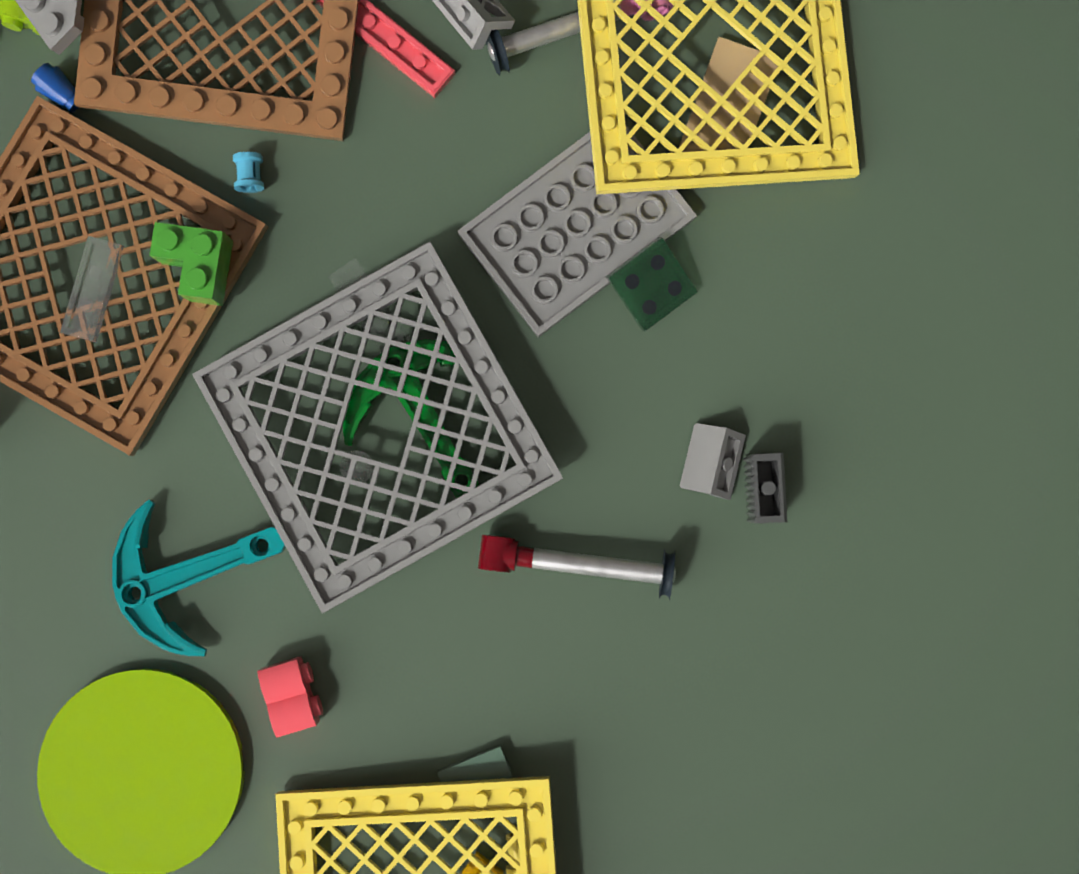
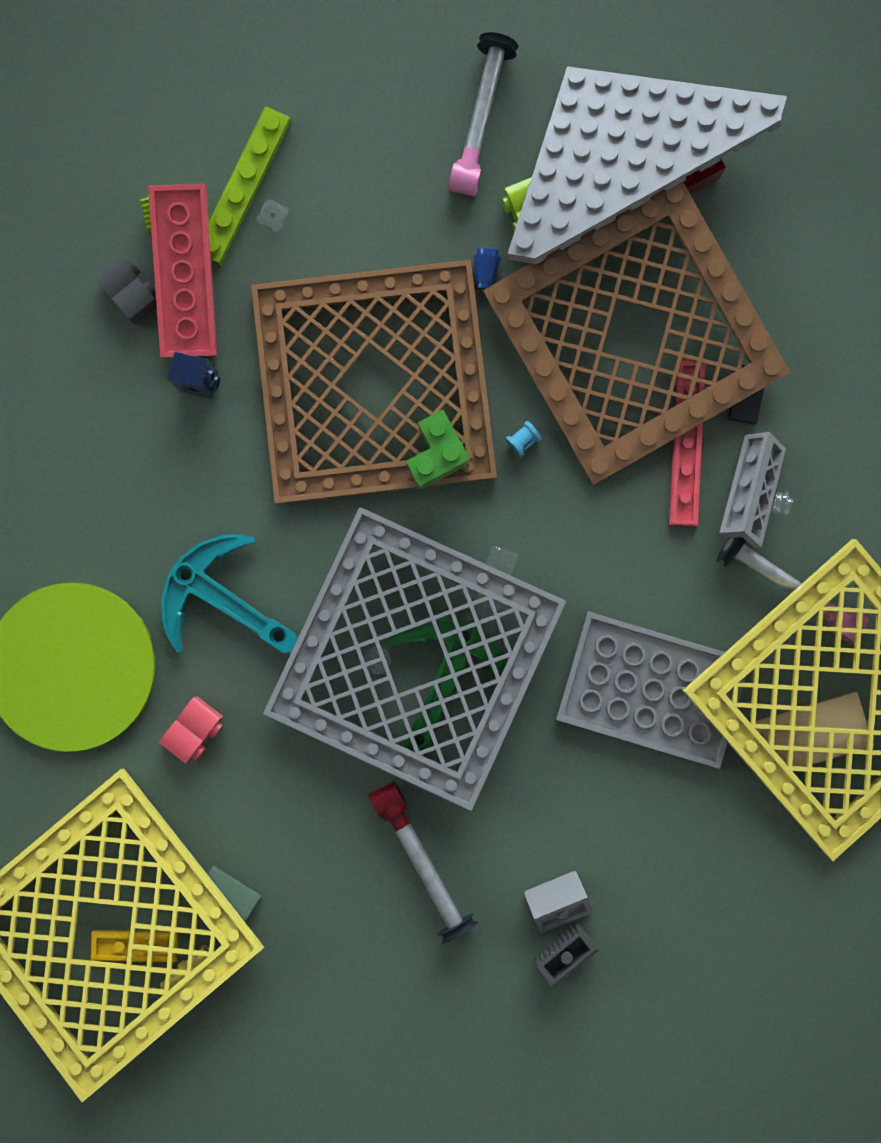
camera: 55 degrees right, 0 degrees up
(92, 289) = (367, 395): clear tile -> none
(651, 284) = (649, 772): clear green tile -> none

